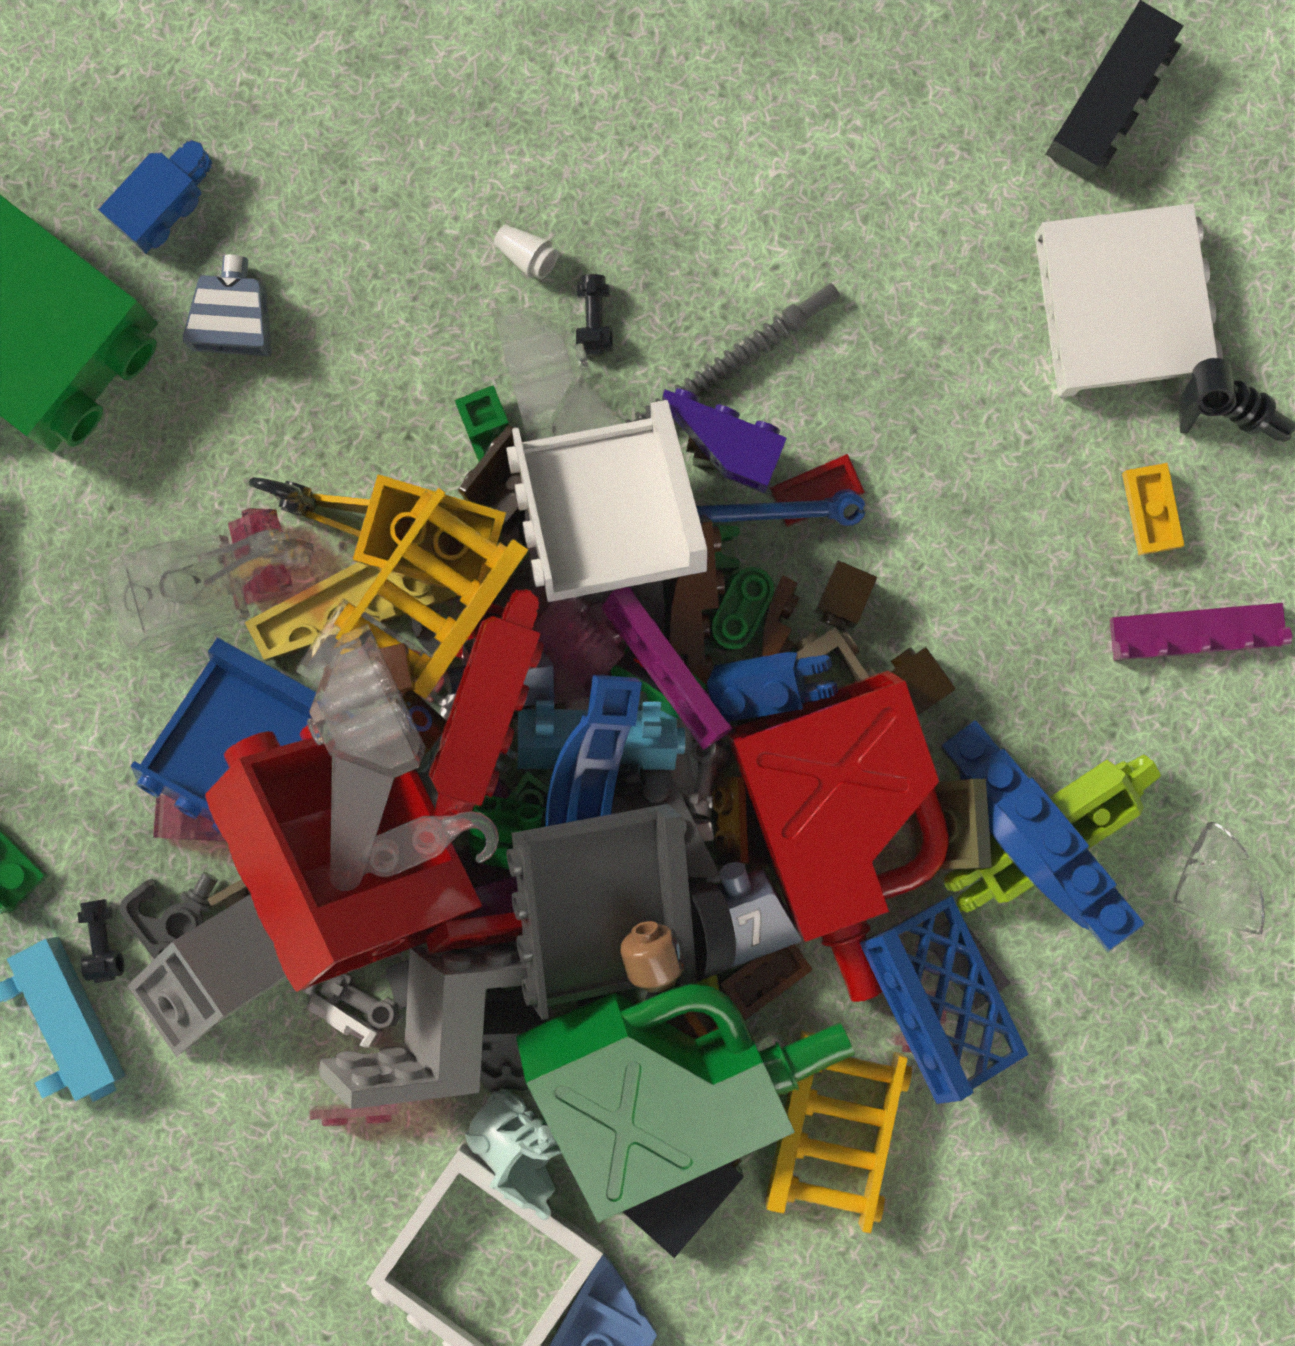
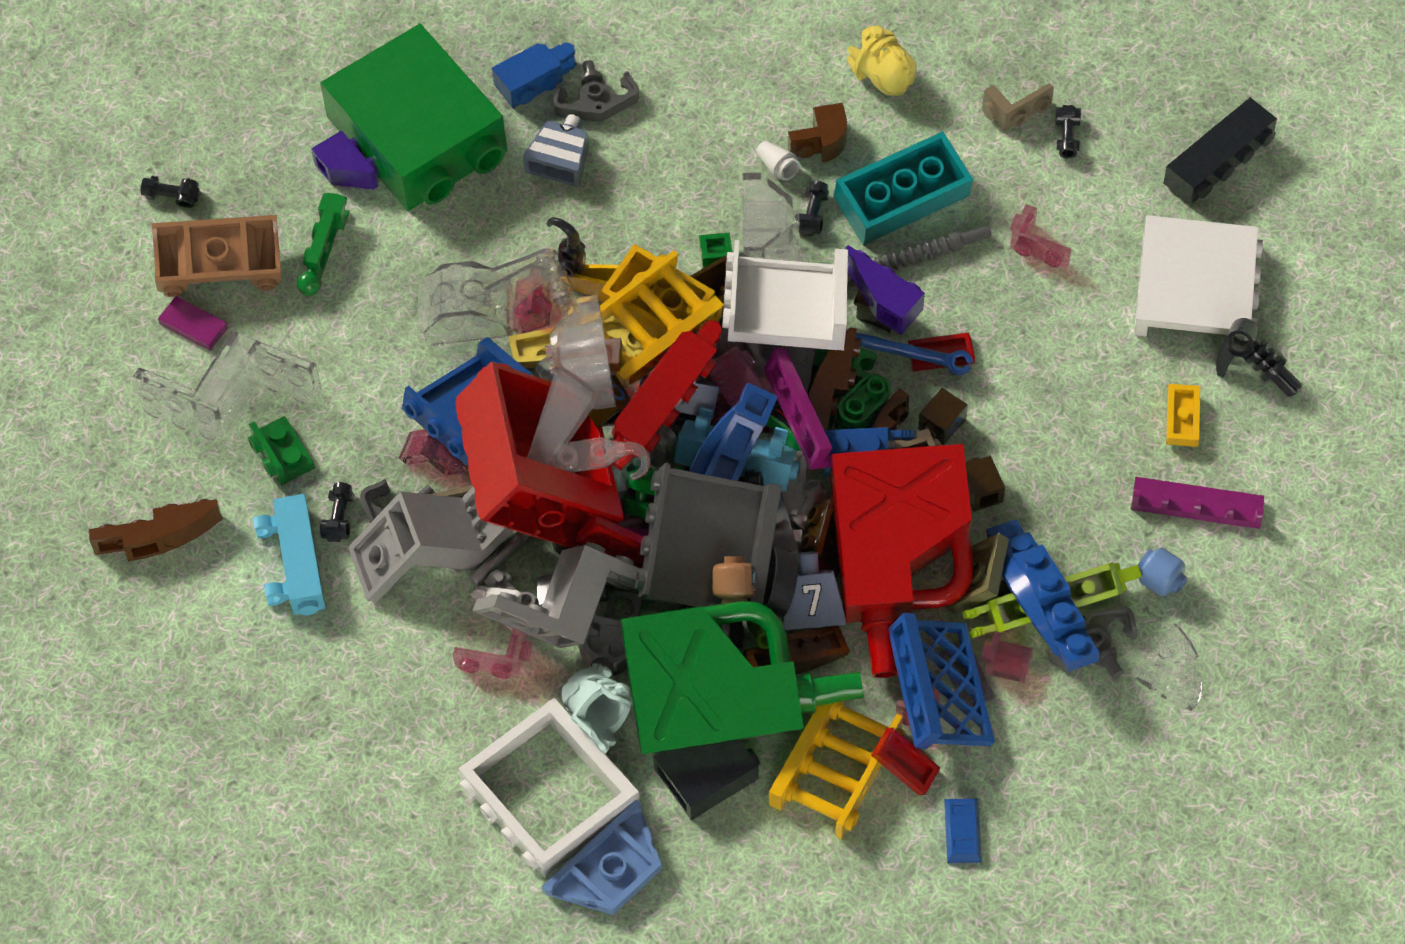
camera: 15 degrees right, 25 degrees down
(255, 215) = (596, 100): none -> dark grey piece
(584, 198) = (825, 137): none -> reddish brown brick
(628, 62) = (888, 70): none -> light yellow helmet
(707, 257) = (903, 188): none -> teal brick
(802, 95) = (1007, 115): none -> dark tan bracket
(893, 302) = (1031, 245): none -> clear pink bracket
(897, 83) = (1068, 117): none -> black bar
(917, 1114) = (905, 761): none -> red tile
(1013, 1174) = (962, 830): none -> blue tile
(1014, 928) = (1006, 659): none -> clear pink bracket
(1121, 864) = (1096, 626): none -> dark grey piece
(1182, 754) = (1162, 572): none -> medium blue head

